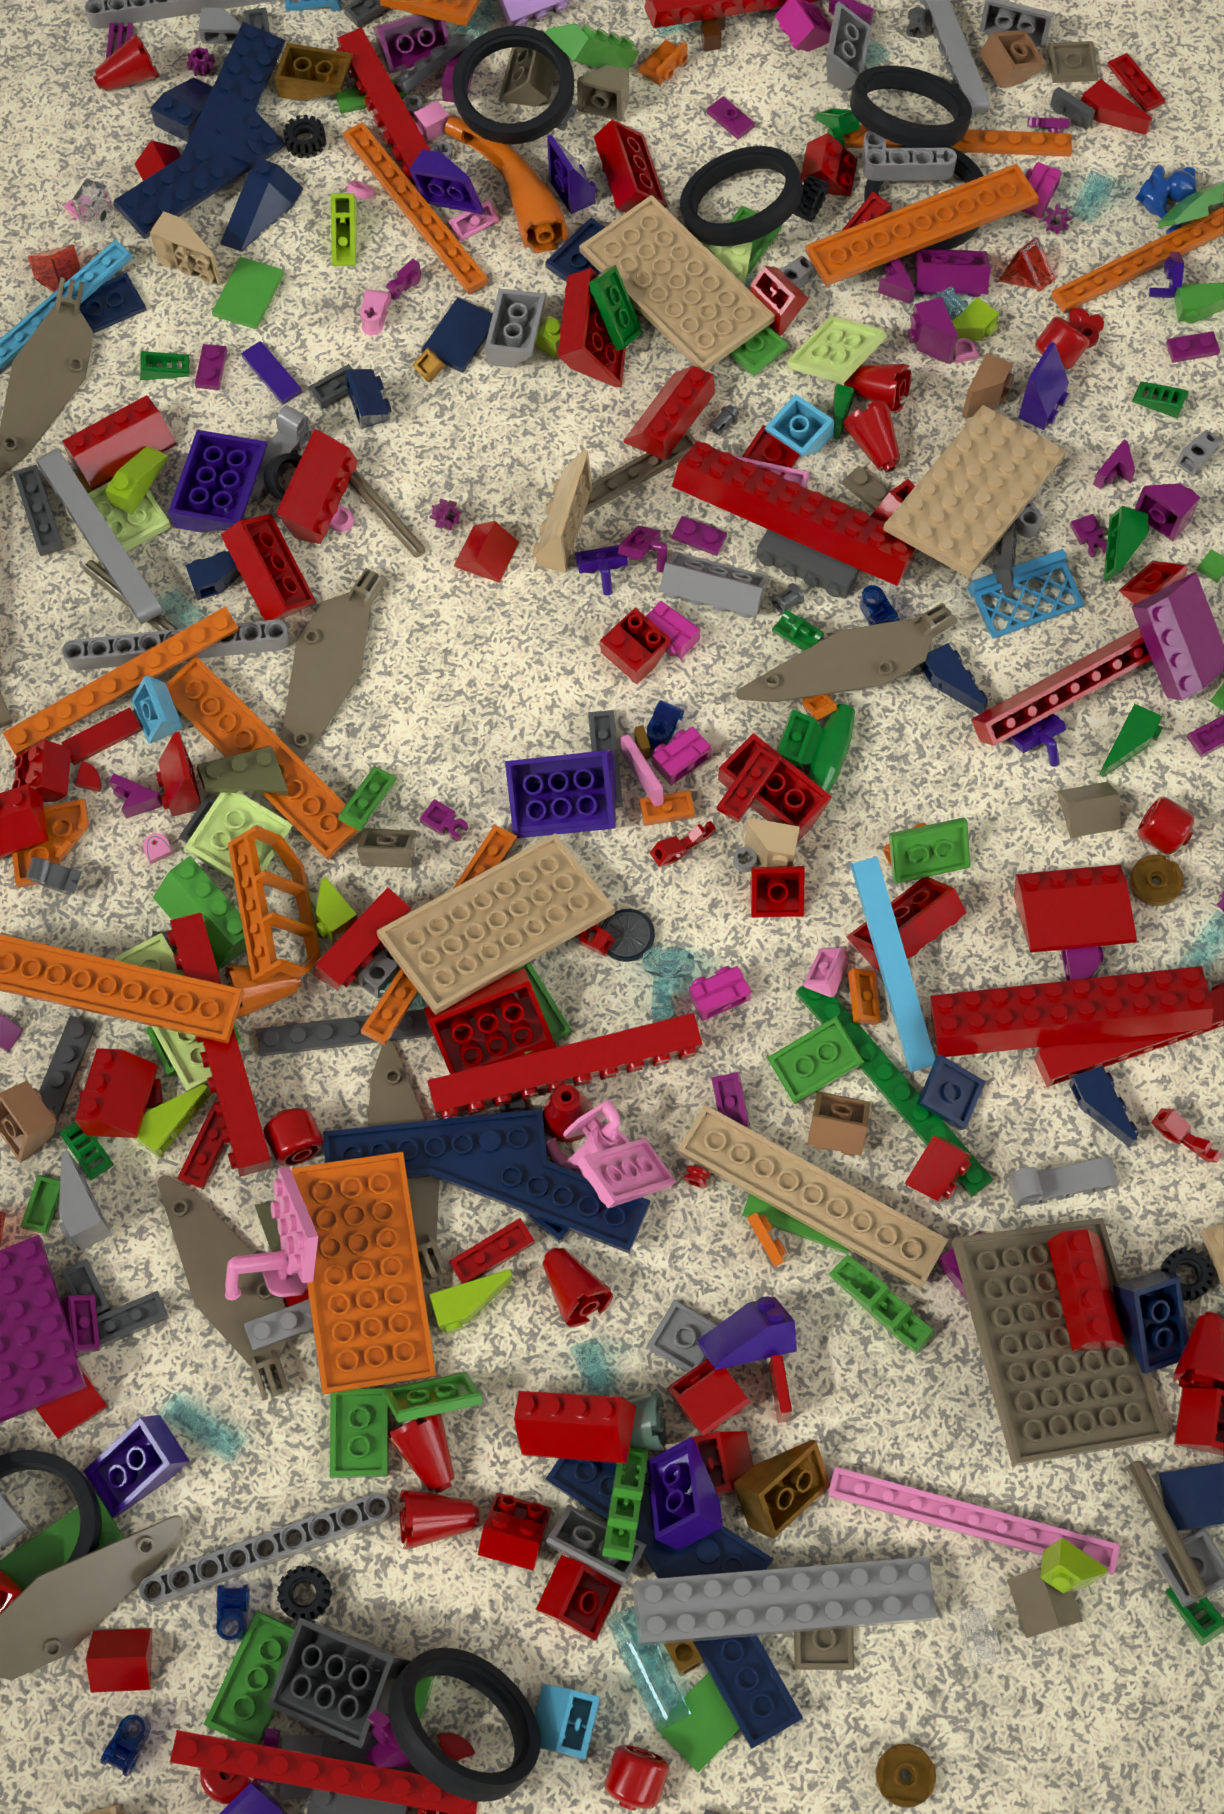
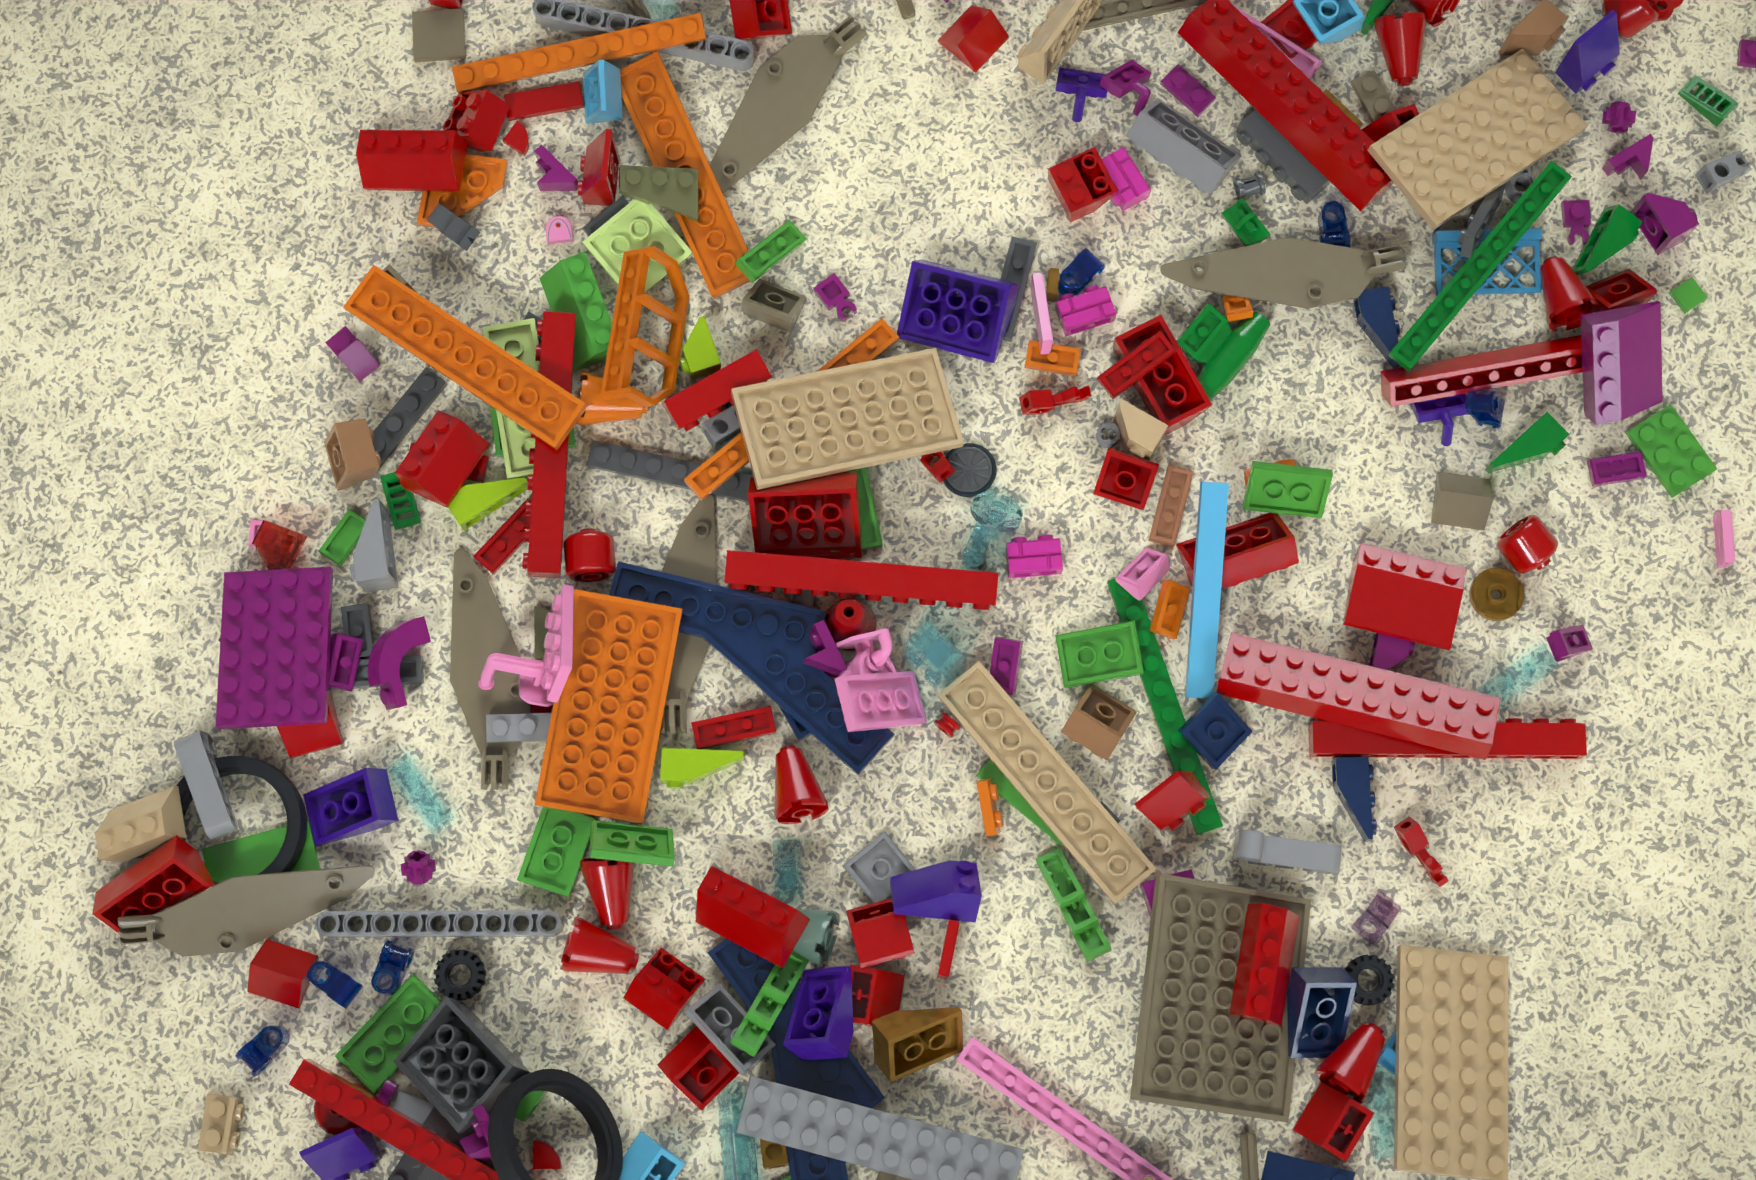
camera: 20 degrees right, 10 degrees up
(125, 1302) = (387, 656): none -> magenta arch
(183, 1650) = (337, 986): none -> clear blue piece
(225, 1500) = (418, 867): none -> magenta gear
(560, 1148) = (829, 657): none -> magenta slope
(661, 1114) = (934, 655): none -> clear light blue brick
(828, 903) = (1171, 506): none -> nougat tile
(1022, 598) = (1479, 266): none -> green plate
(1079, 719) = (1485, 408): none -> clear blue piece
(1090, 435) = (1619, 117): none -> magenta gear
(1107, 599) = (1564, 295): none -> red cone
(1173, 1207) = (1380, 913): none -> clear purple bracket

